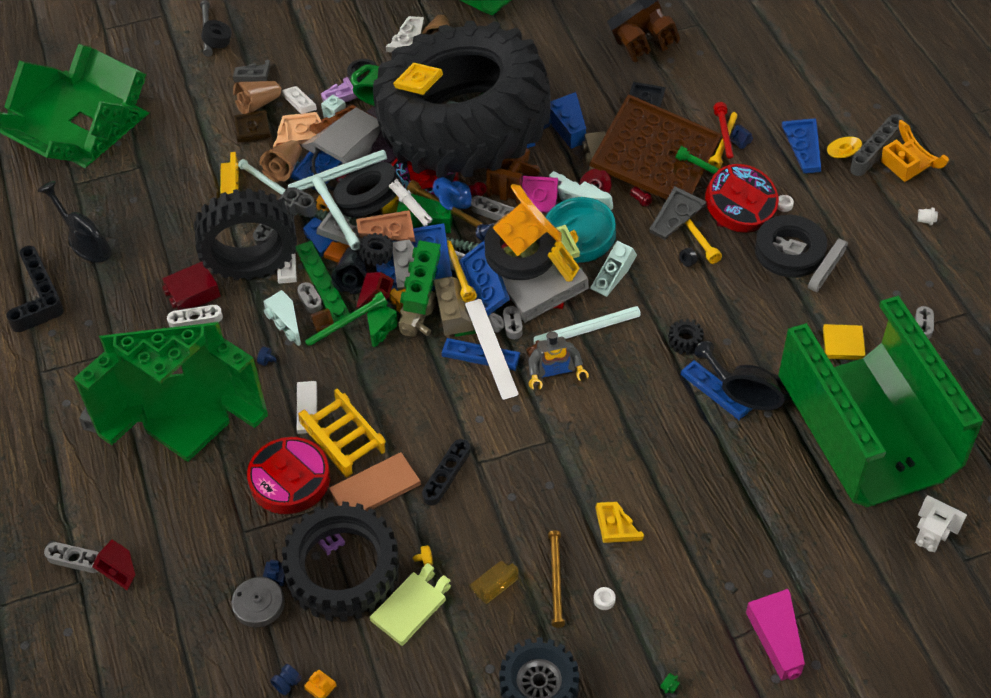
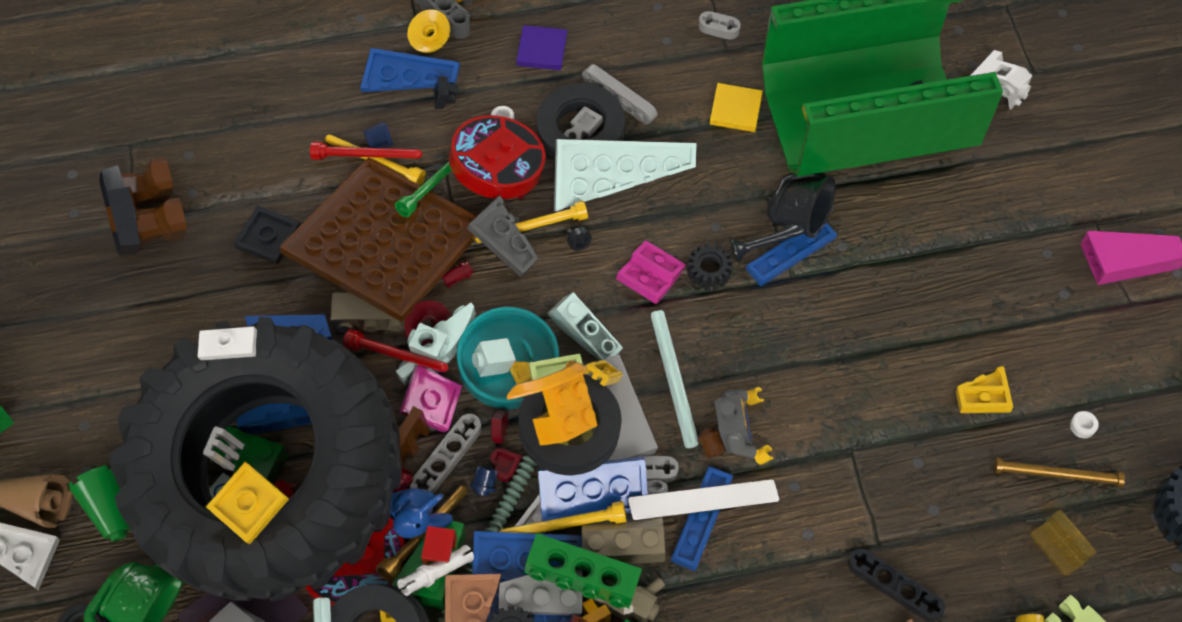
camera: 85 degrees left, 10 degrees up
(427, 197) = (438, 545): none -> red panel
(445, 64) = (229, 451): none -> light grey tile
(516, 44) = (227, 343): none -> white plate
(572, 177) = (424, 332): none -> light aqua brick
(573, 215) = (493, 357): none -> light aqua brick
(575, 153) = (356, 341): none -> red piece
(673, 304) = (650, 272): none -> dark pink slope
(752, 260) = (605, 167): none -> light aqua wing
(791, 164) = (444, 92): none -> black tile
(858, 216) = (542, 47): none -> dark purple tile

